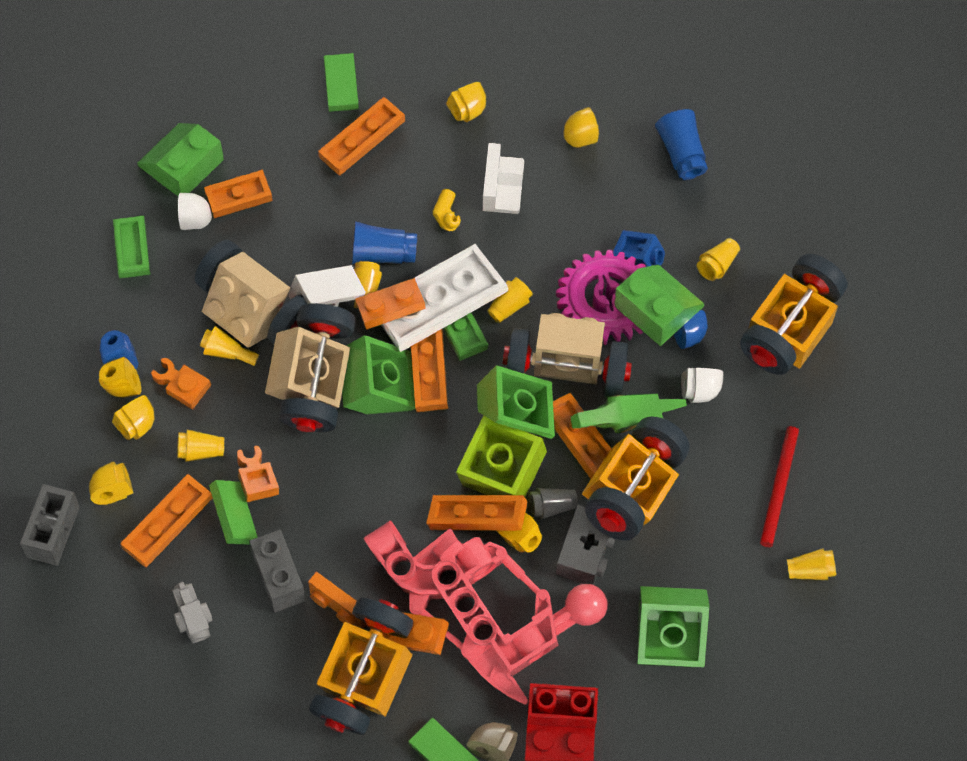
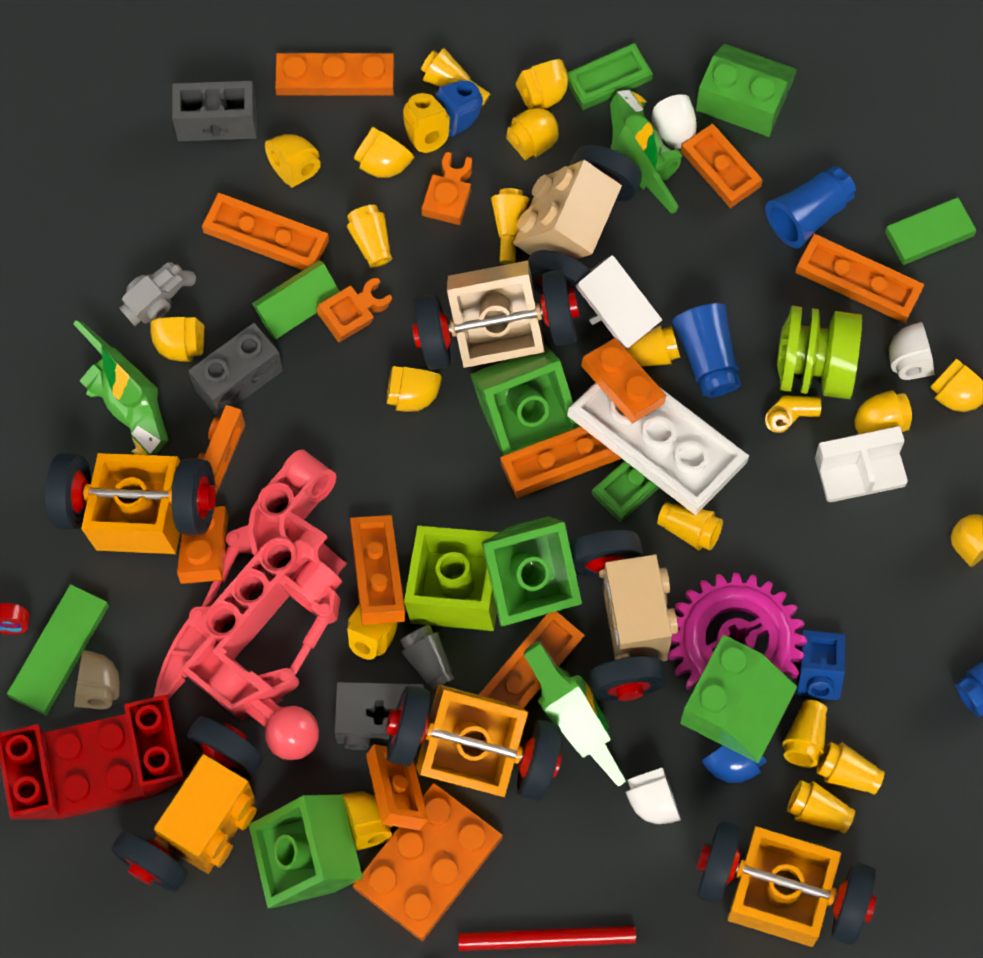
camera: 75 degrees right, 5 degrees up
(47, 435) = (335, 74): none -> orange plate
(81, 354) = (443, 70): none -> yellow cone
(123, 290) = (543, 84): none -> yellow piece
(157, 310) = (533, 132): none -> yellow piece
(198, 238) = (642, 144): none -> bright green animal
(233, 608) = (178, 337): none -> yellow piece
(267, 658) = (126, 394): none -> bright green animal
(296, 148) = (809, 206): none -> blue plant
(337, 454) = (412, 388): none -> yellow piece
(415, 172) = (820, 352): none -> lime wheel
(430, 121) = (911, 353): none -> white piece
(470, 155) = (884, 412): none -> yellow piece
(628, 682) = (203, 812): none -> brick
(648, 546) = (396, 791): none -> orange plate
(660, 574) = (365, 820): none -> yellow piece
(690, 276) = (806, 736): none -> yellow cone
(702, 547) = (428, 868): none -> orange plate
(739, 286) = (819, 807): none -> yellow cone

